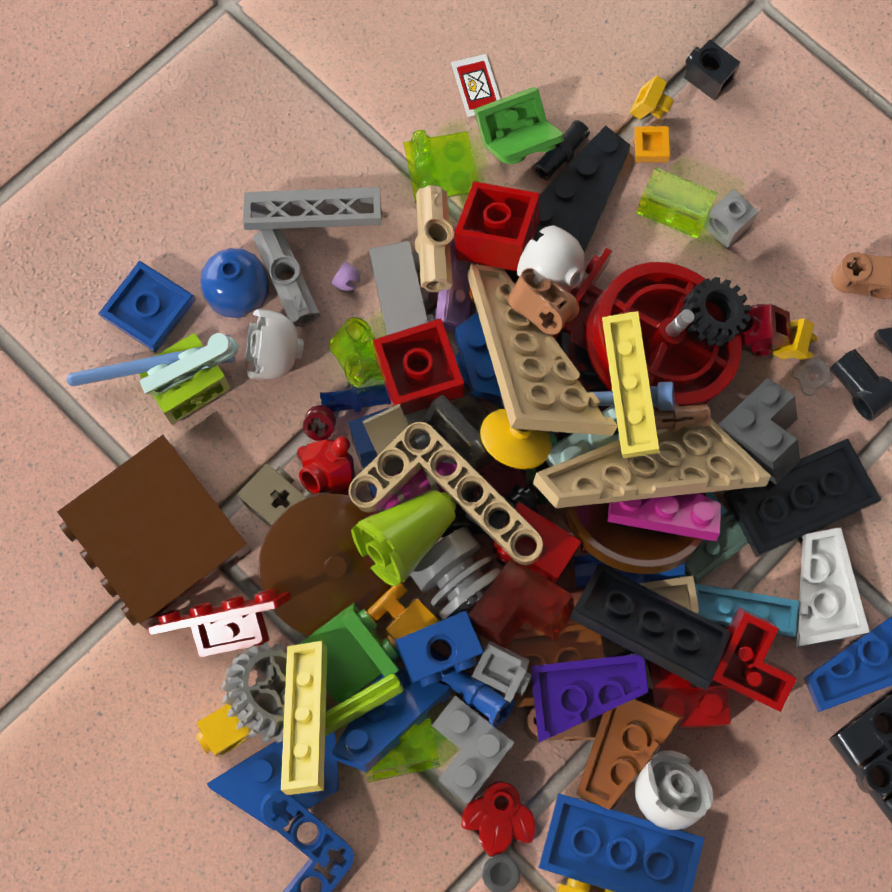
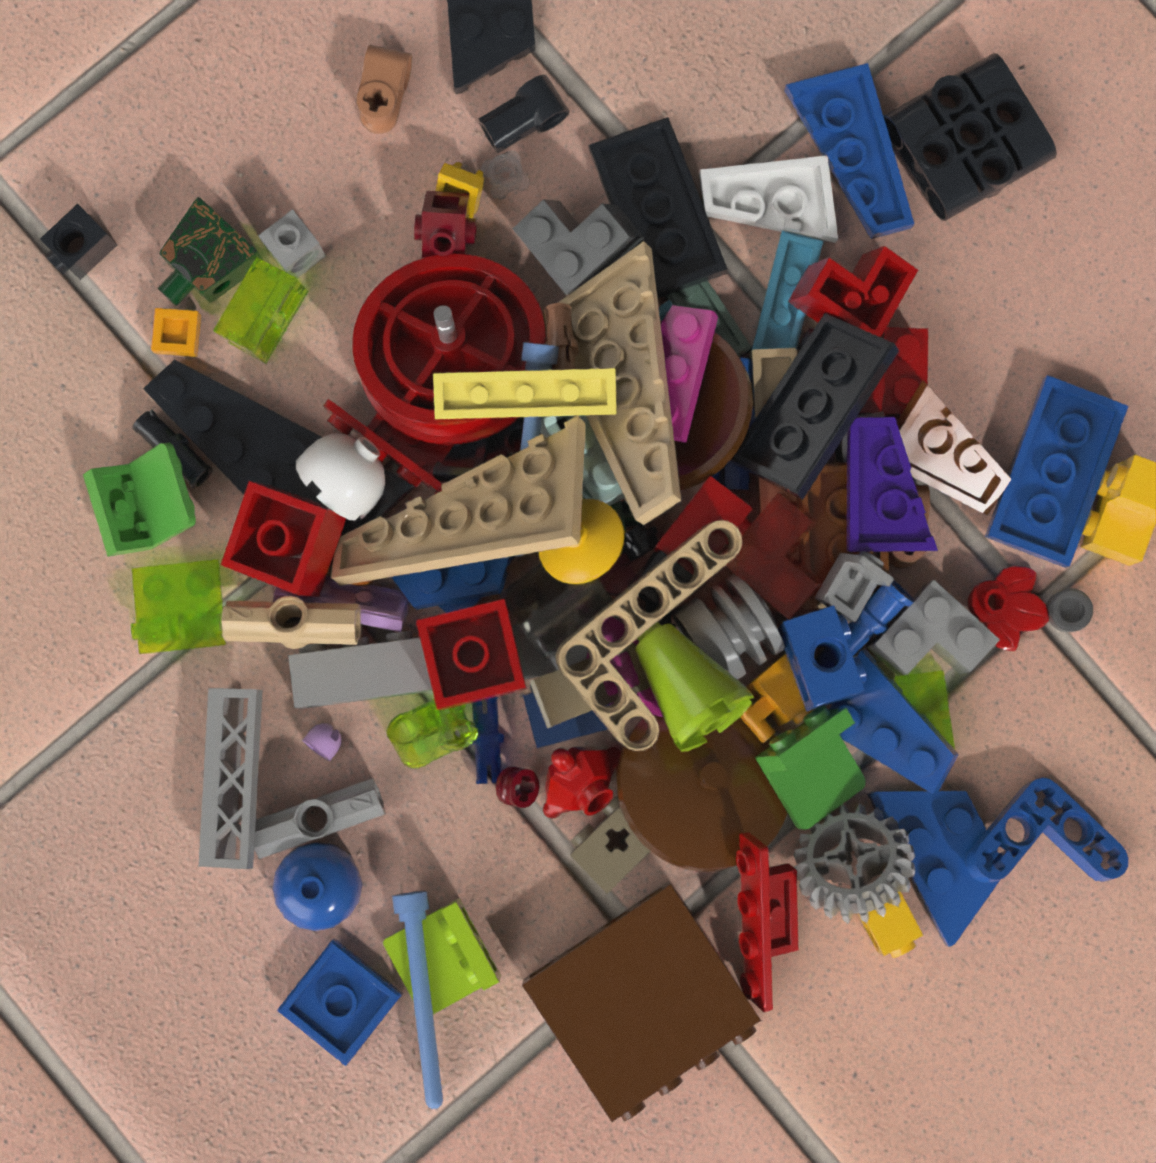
camera: 85 degrees left, 10 degrees up
(191, 361) = (434, 946): light aqua plate -> none
(272, 345) = (411, 841): white cylinder -> none
(304, 719) = (896, 822): light yellow plate -> none
(362, 703) = (885, 768): lime axle -> none
(475, 82) = (62, 551): sticker -> none
(542, 302) = (398, 492): nougat piece -> none
(652, 100) = (113, 325): yellow tile -> none
(672, 791) = (998, 403): white cylinder -> none
(714, 157) = (204, 256): none -> torso
(730, 304) = (420, 259): black tyre -> none

